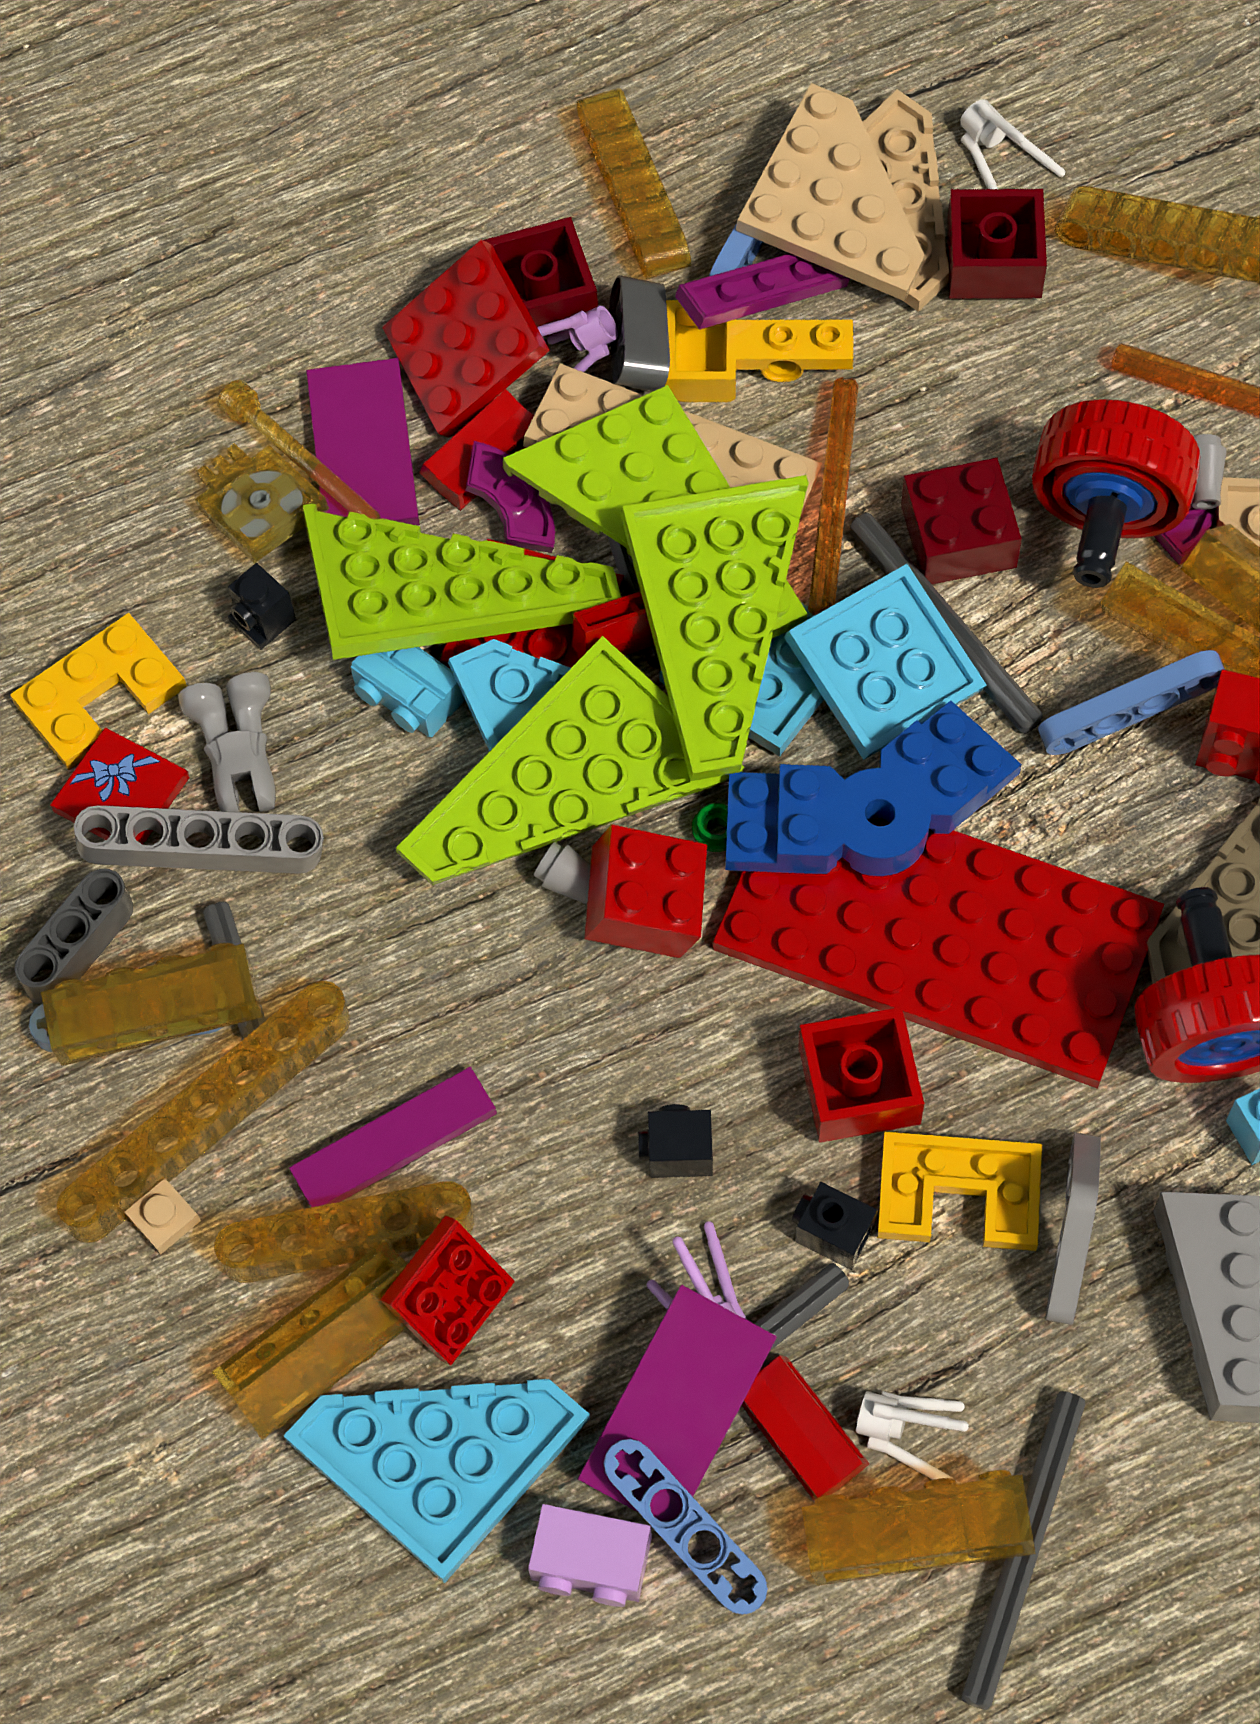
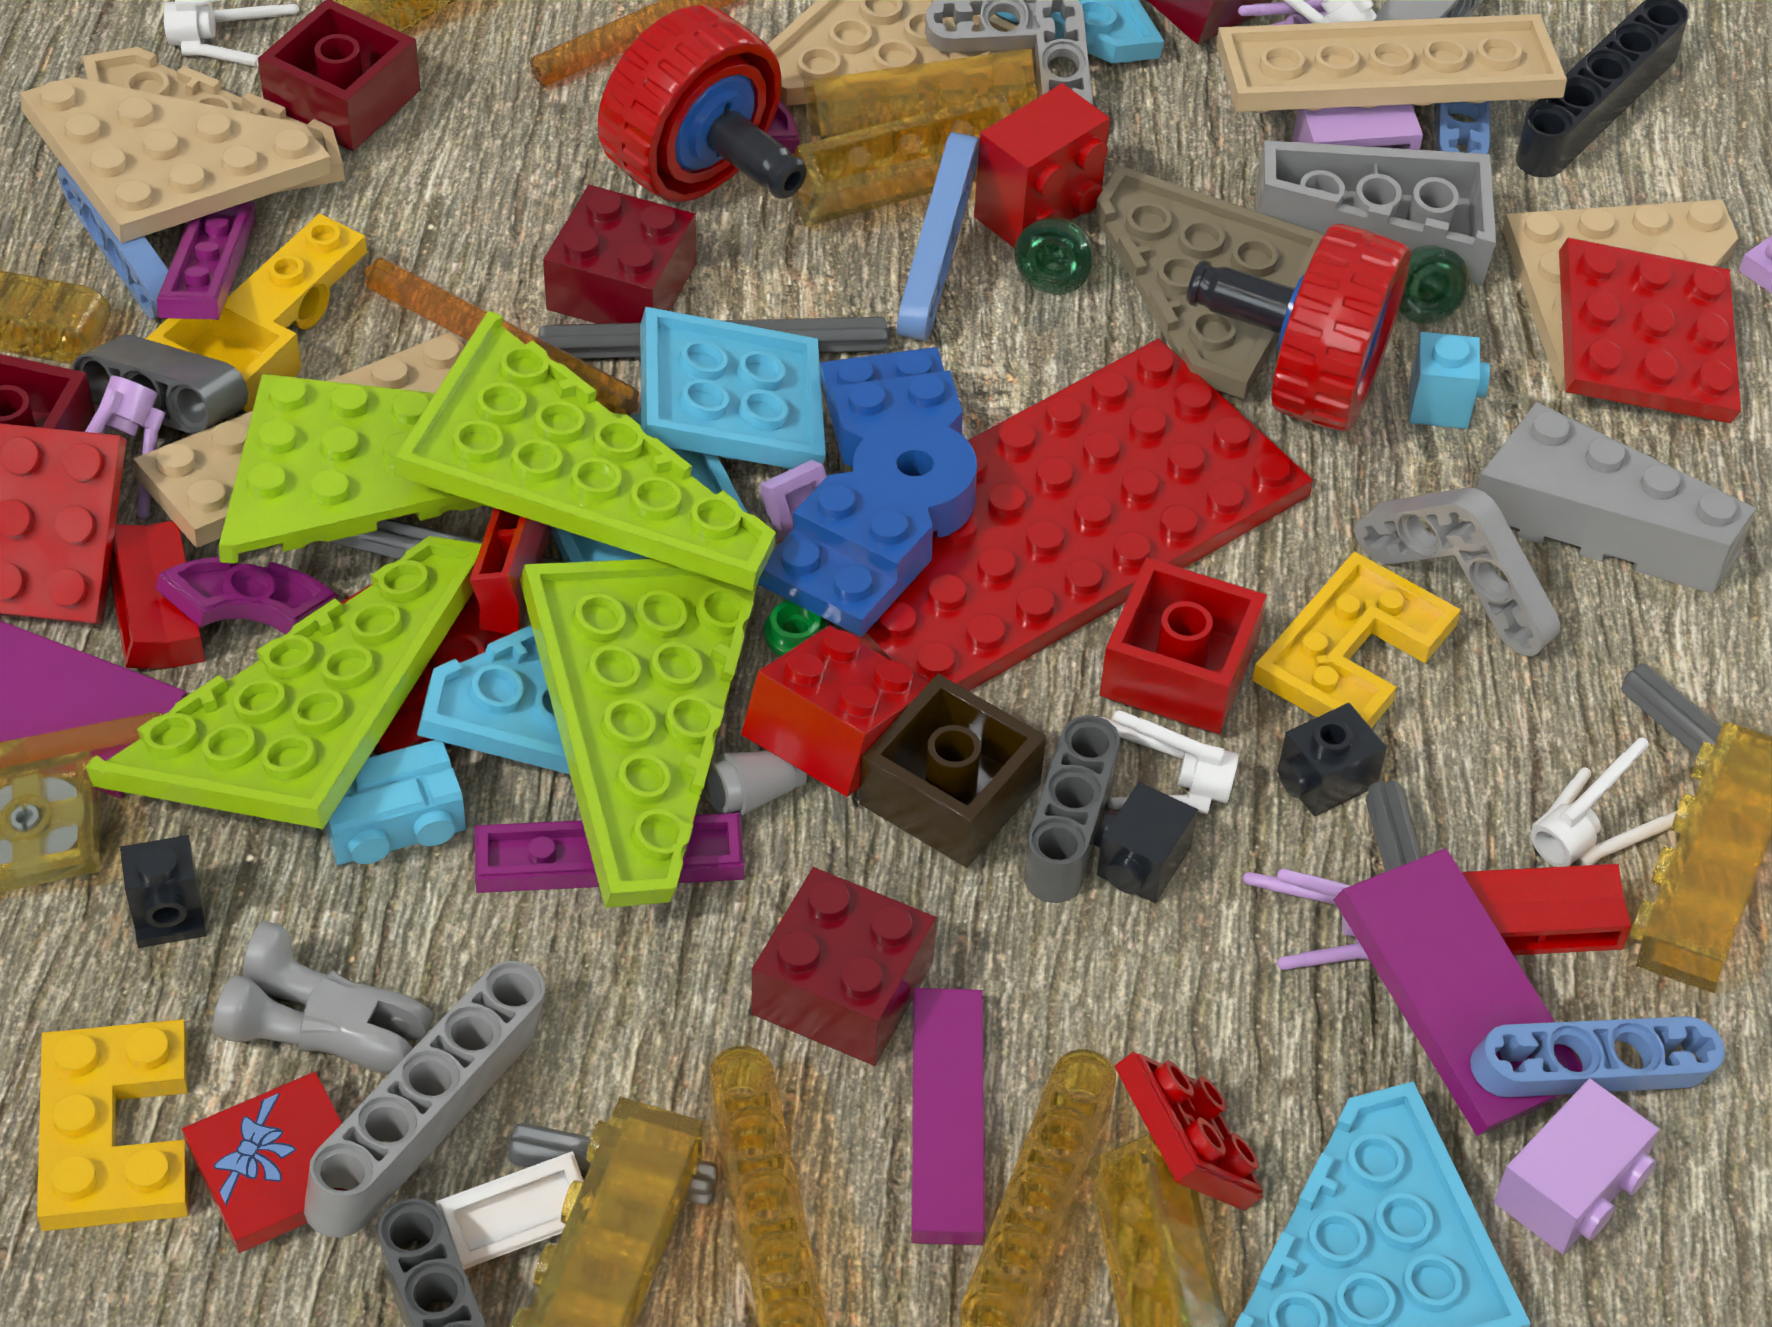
camera: 65 degrees left, 15 degrees down
(158, 931) = (509, 1210): none -> white tile
(426, 782) = (560, 858): none -> magenta tile
(452, 1014) = (843, 966): none -> dark red brick
(647, 989) = (952, 770): none -> dark brown brick
(693, 1062) = (1071, 808): none -> dark grey beam
(769, 1150) = (1204, 768): none -> white plant
(825, 751) = (787, 491): none -> lavender tile
(1193, 788) = (1054, 255): none -> clear green brick

